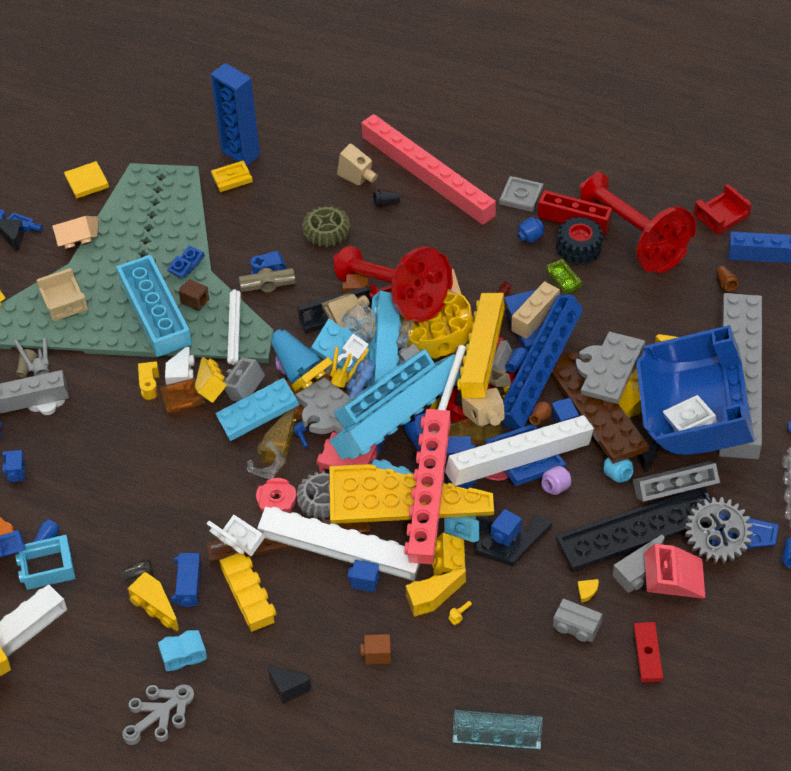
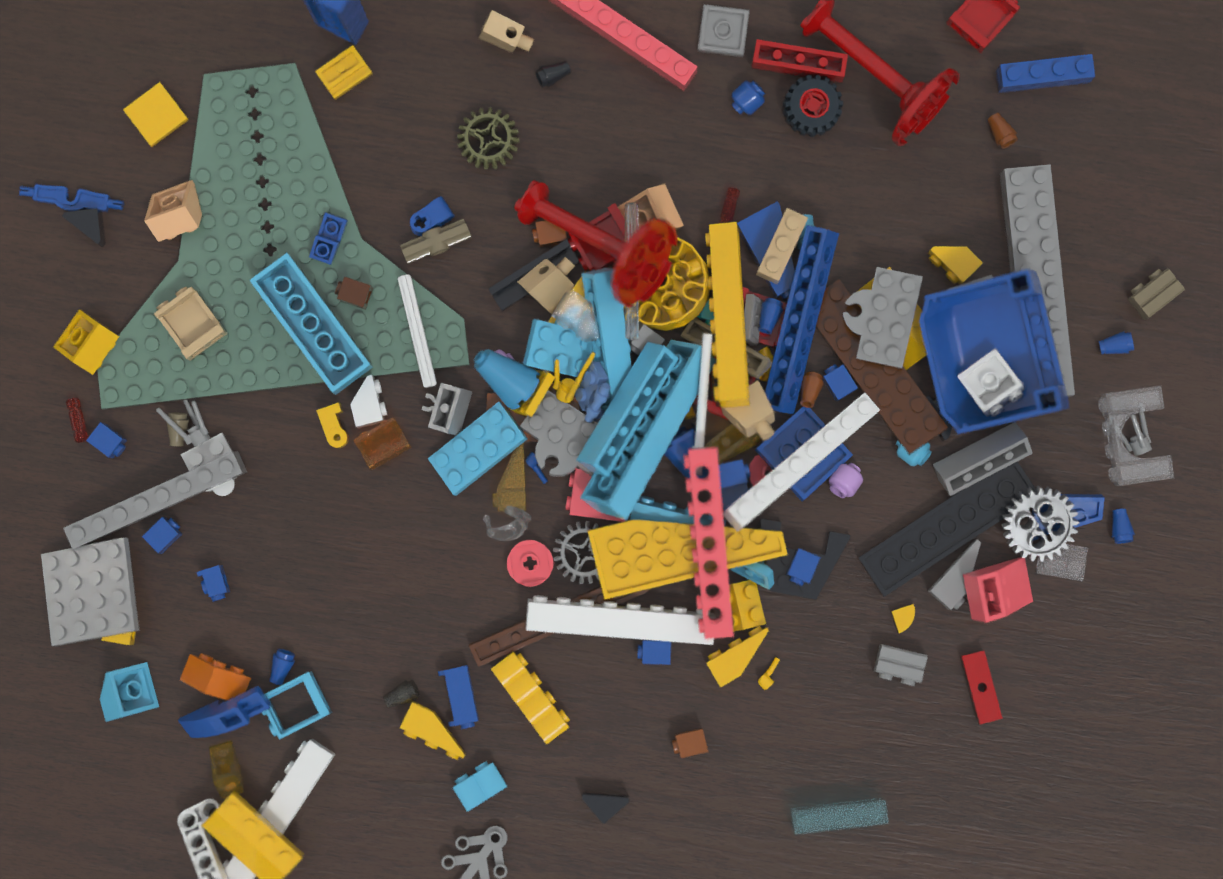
camera: 10 degrees left, 35 degrees up
(209, 380) = (410, 420): yellow slope -> none
(238, 535) = (504, 643): white bracket -> none
(354, 346) = (576, 355): white plate -> none
(564, 276) = (802, 164): clear neon green plate -> none
(738, 573) = (1069, 565): none -> clear plate

